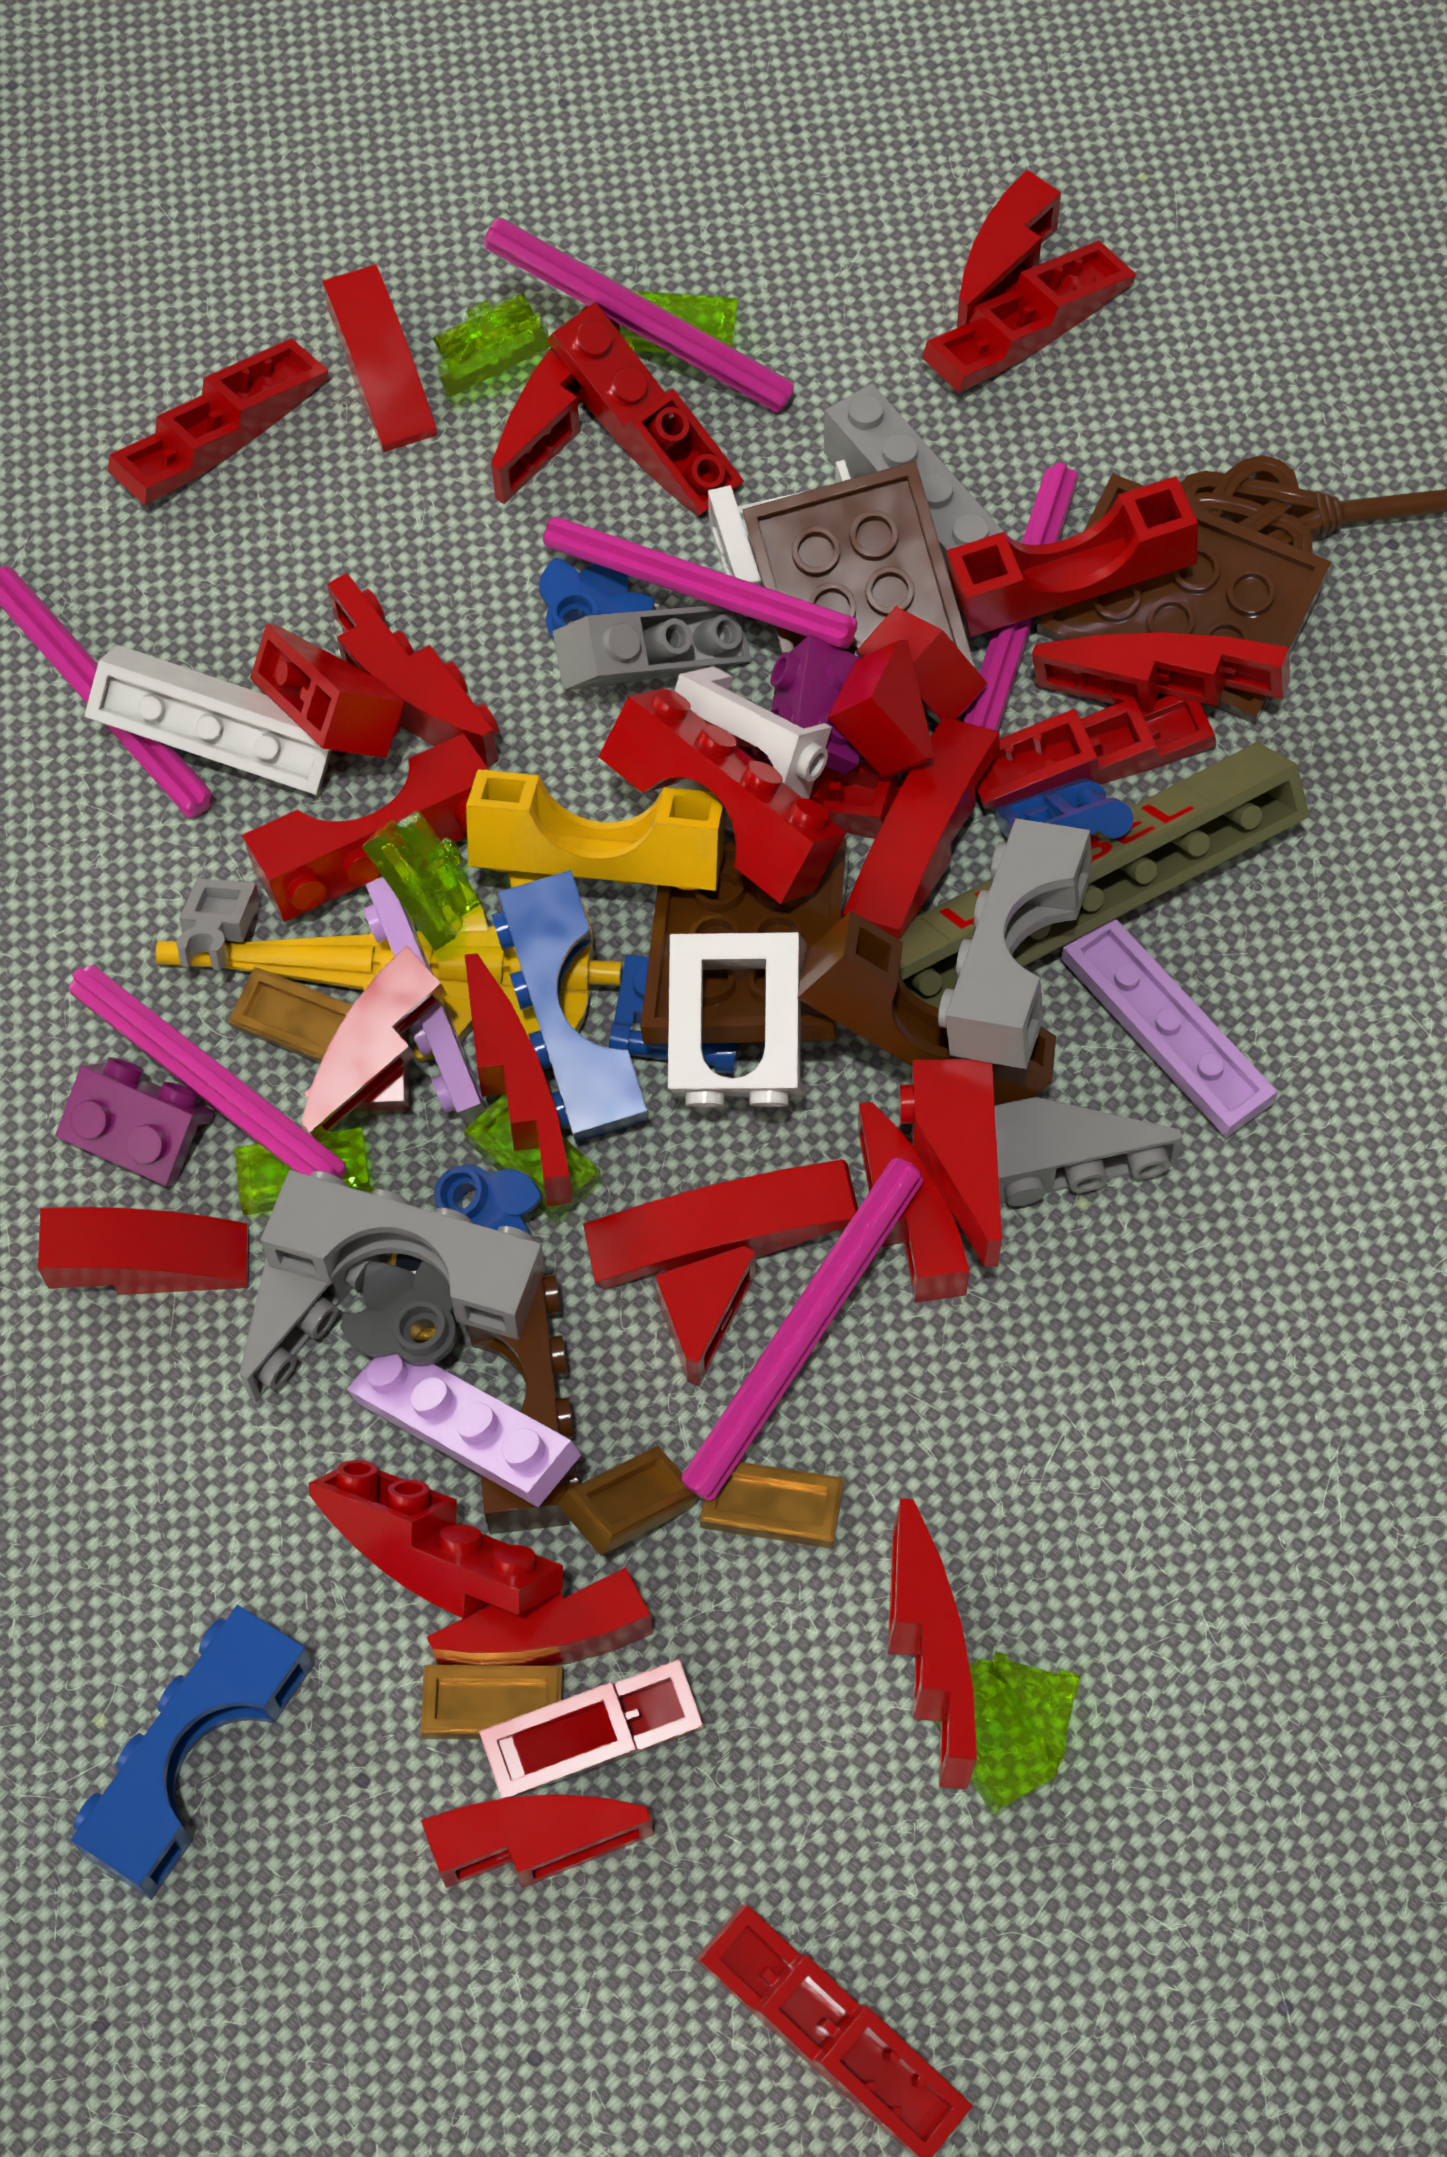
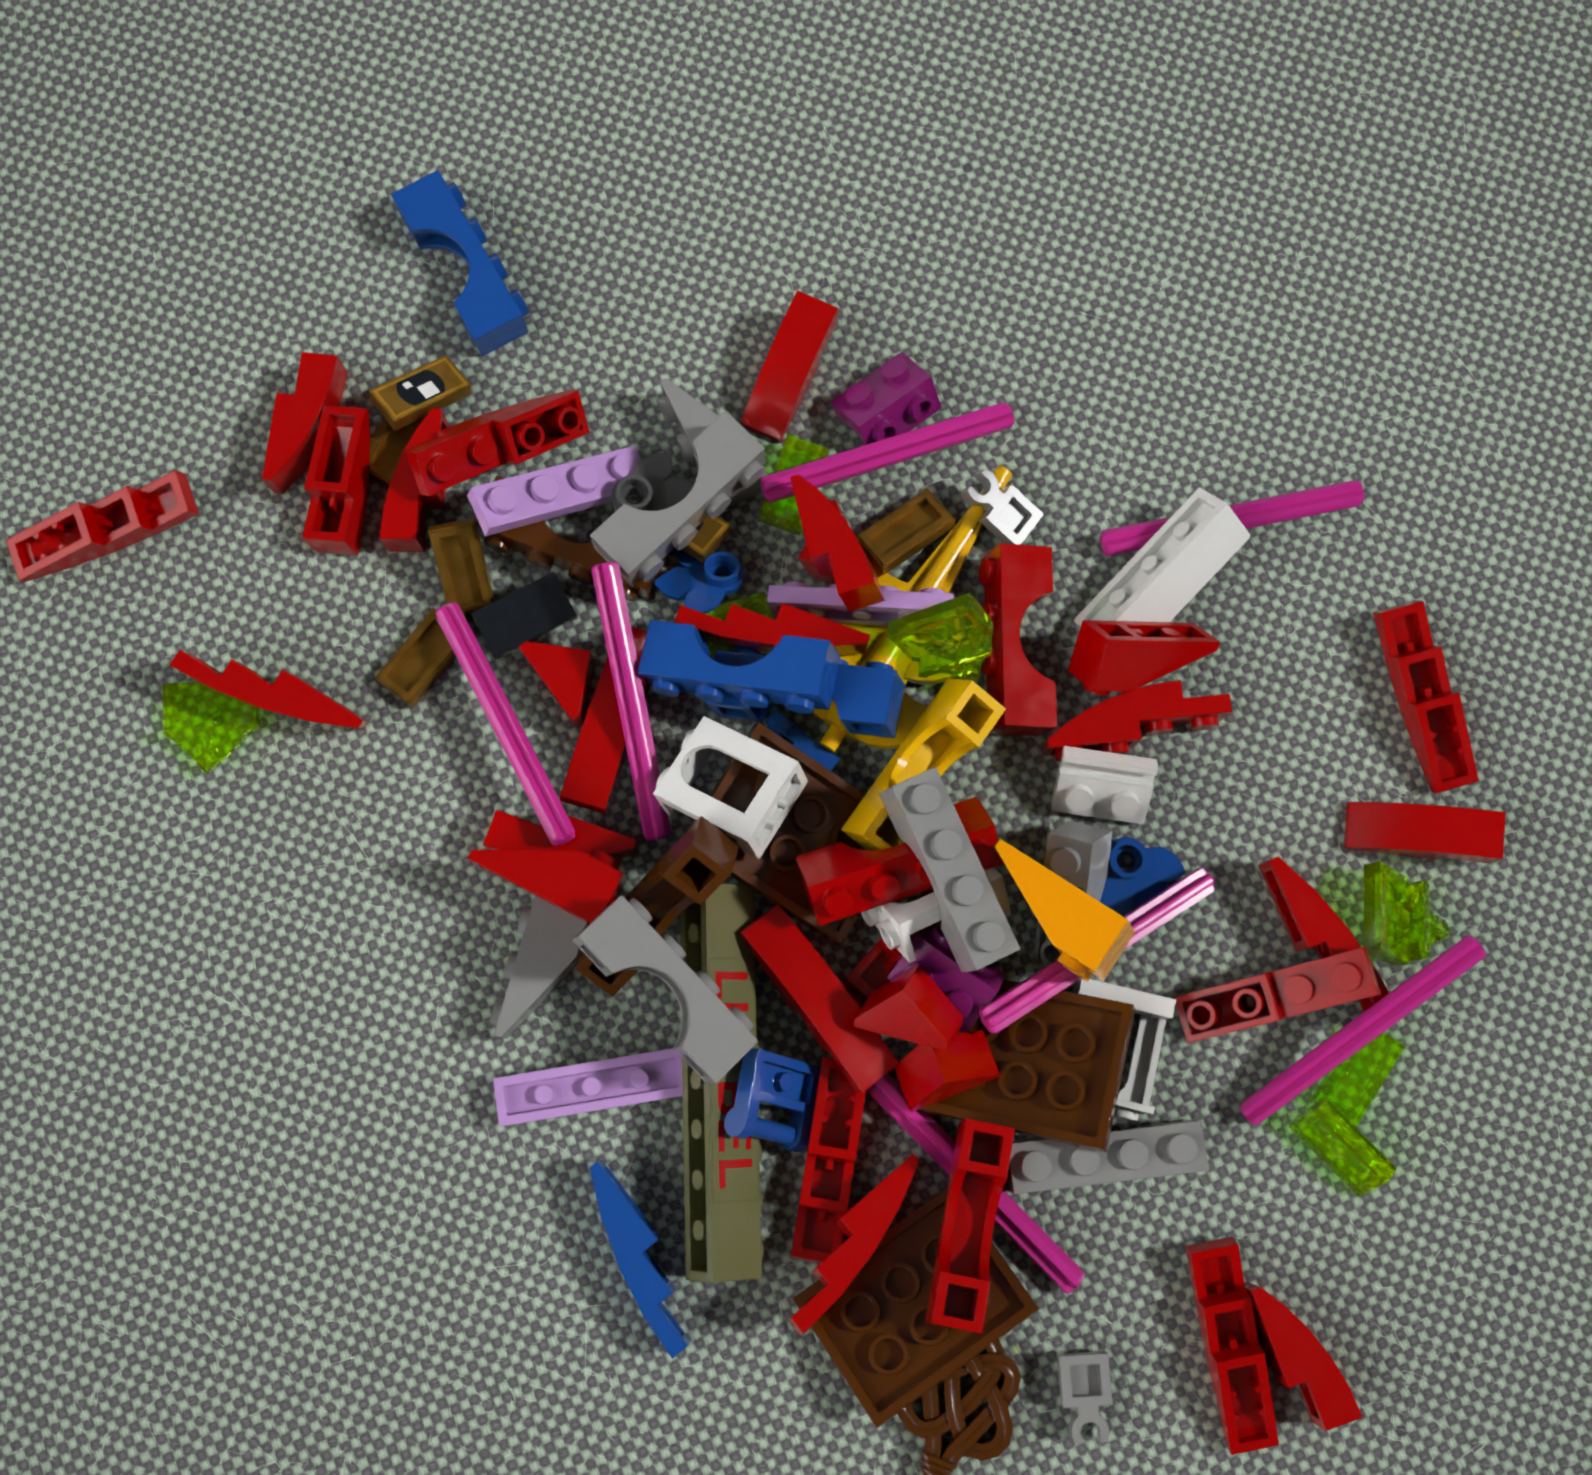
camera: 115 degrees right, 15 degrees up
(413, 1694) = (418, 391): none -> tile
(503, 668) = (1104, 785): none -> white plate
(563, 997) = (794, 673): none -> blue arch
(651, 1392) = (524, 615): none -> black hinge
(664, 754) = (967, 903): none -> light grey arch
(690, 1186) = (630, 697): none -> dark pink axle
(699, 558) = (1076, 924): none -> light orange slope
(768, 298) = (1342, 1147): none -> clear neon green plate
(1161, 419) = (1085, 1386): none -> light grey plate
(1312, 890) = (630, 1237): none -> blue slope

